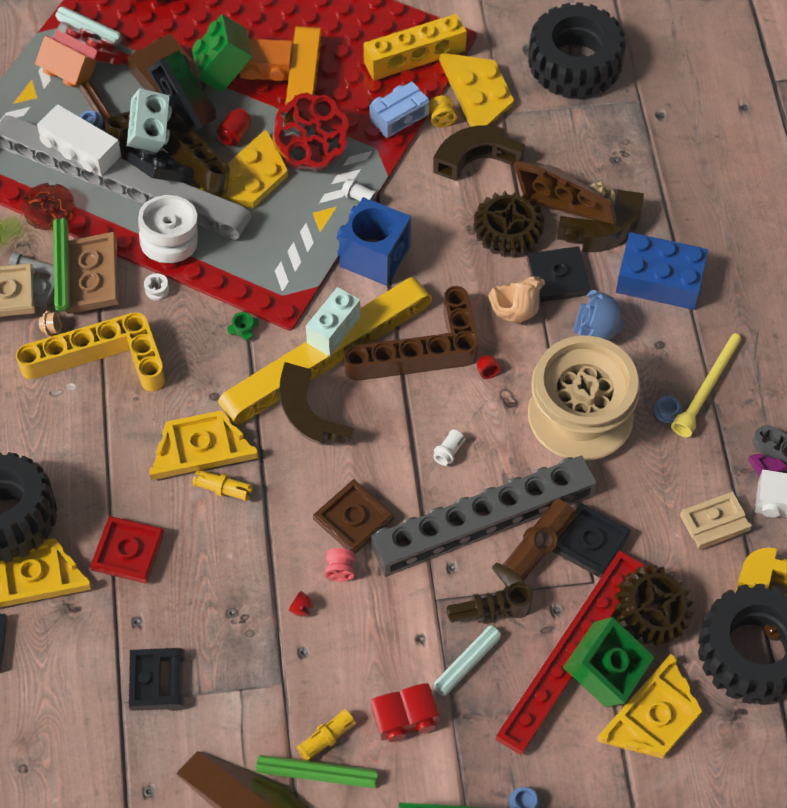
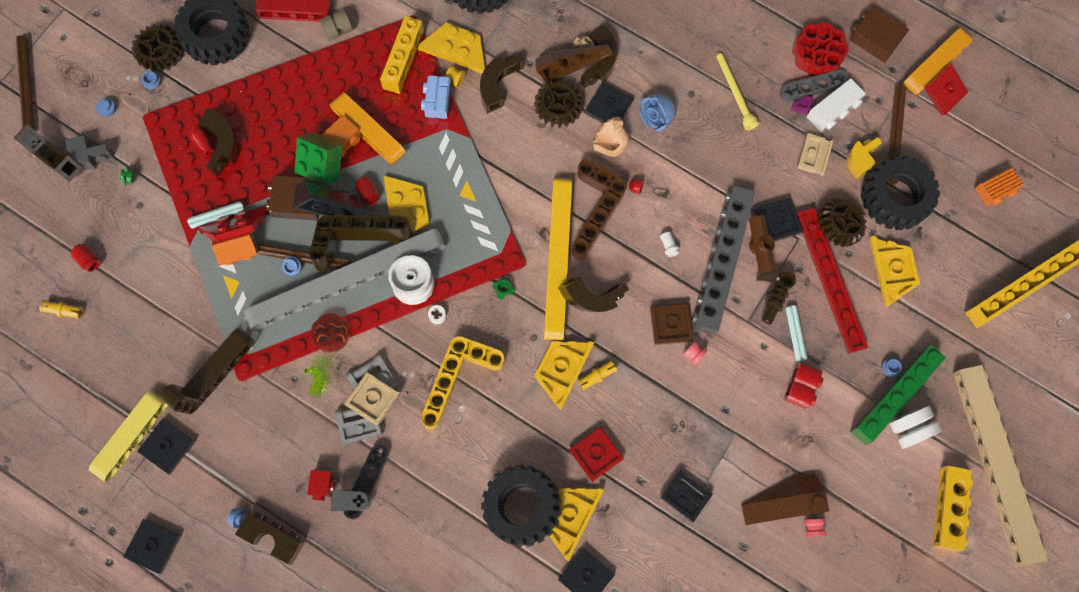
camera: 55 degrees left, 15 degrees up
(50, 323) = (412, 390): light nougat plate -> none
(61, 265) = (381, 355): bright green axle -> none
(79, 140) = (308, 283): white brick -> none
(93, 272) = (398, 343): medium nougat plate -> none
(144, 119) = (332, 237): light aqua brick -> none
(160, 166) = (363, 252): black plate -> none
(300, 602) = (700, 389): red hinge -> none
(317, 771) = (799, 454): bright green axle -> none
(326, 735) = (784, 434): yellow pin -> none
(333, 121) = (400, 144): red connector -> none
(333, 321) = (554, 241): light aqua brick -> none
(357, 191) = (471, 161): white pin -> none
(374, 259) = (515, 164): blue brick -> none
(587, 374) = (726, 148): tan wheel -> none
(608, 662) = (858, 268): green brick -> none
(661, 271) = (654, 55): blue brick -> none
(667, 409) = (734, 122): medium blue plate -> none

